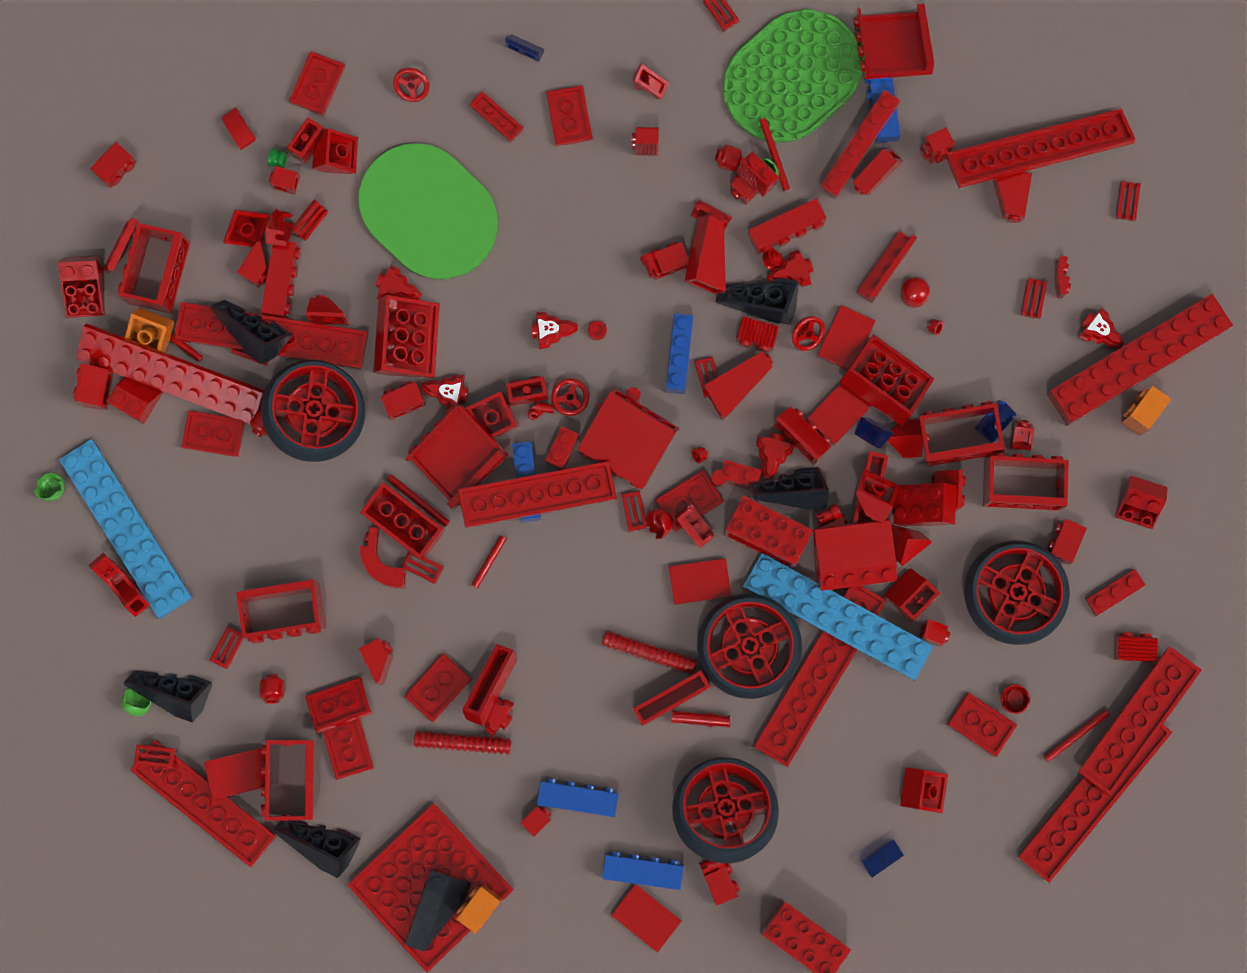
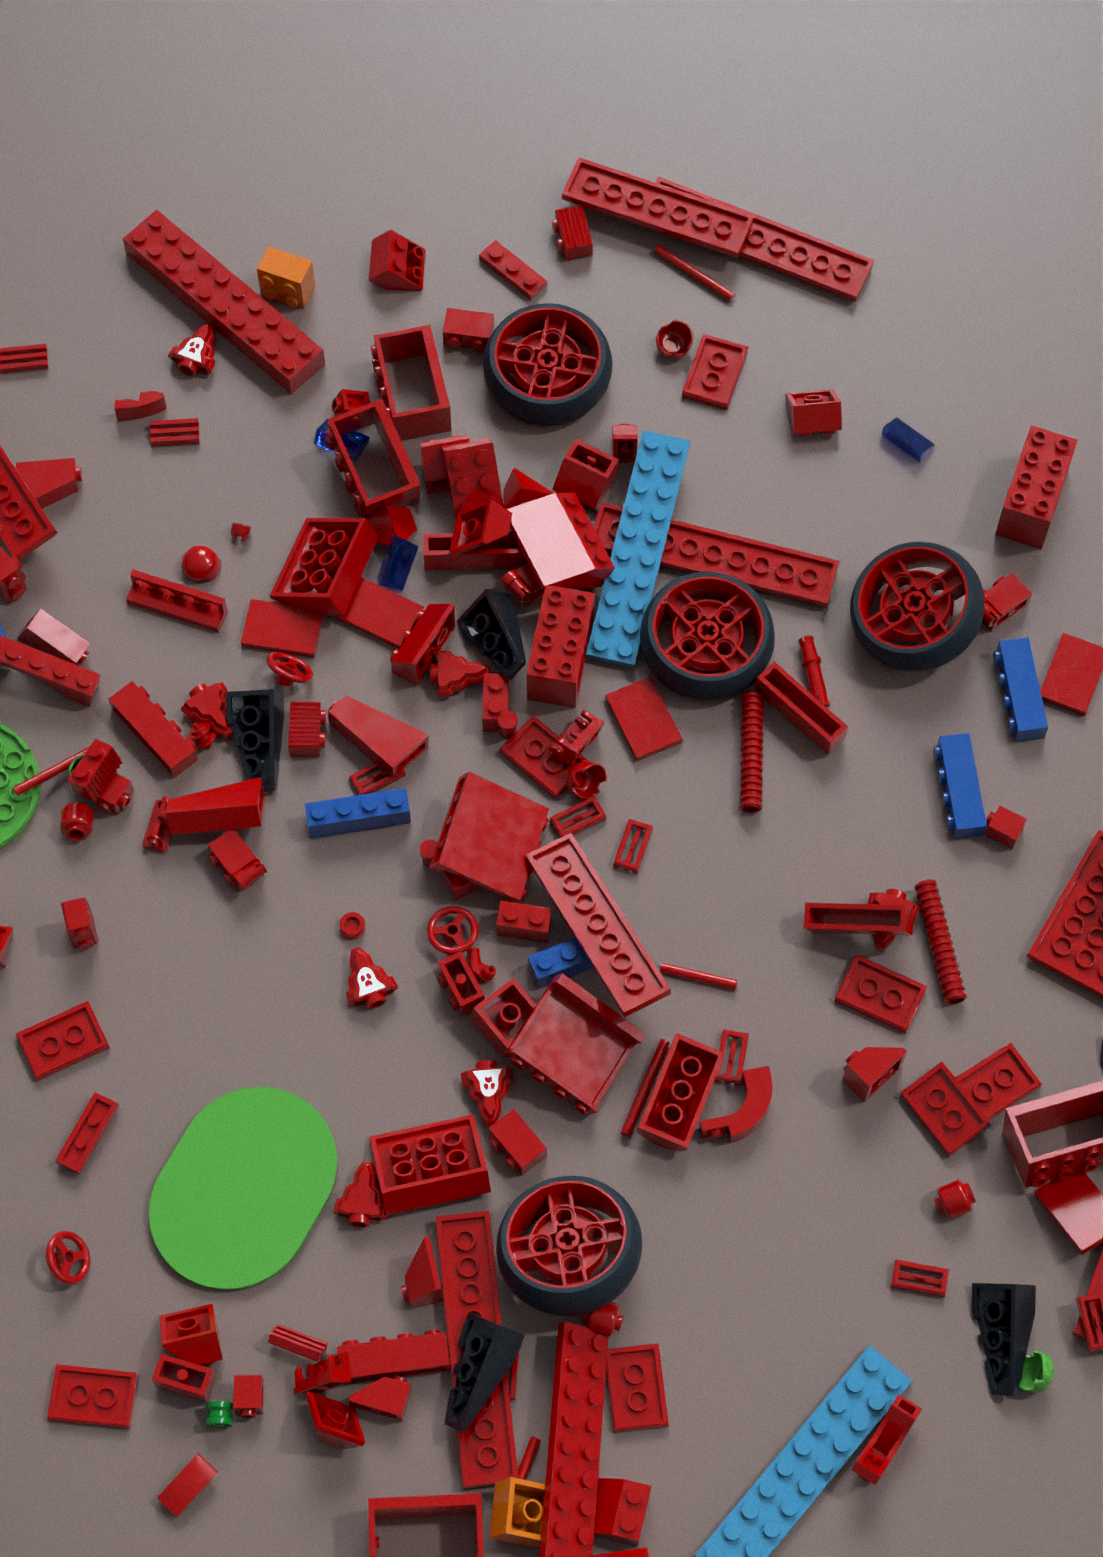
camera: 110 degrees left, 15 degrees down
(276, 591) = (826, 1224): red hose -> none
(614, 553) = (627, 865): none -> red tile
(699, 454) = (486, 762): red hinge -> none

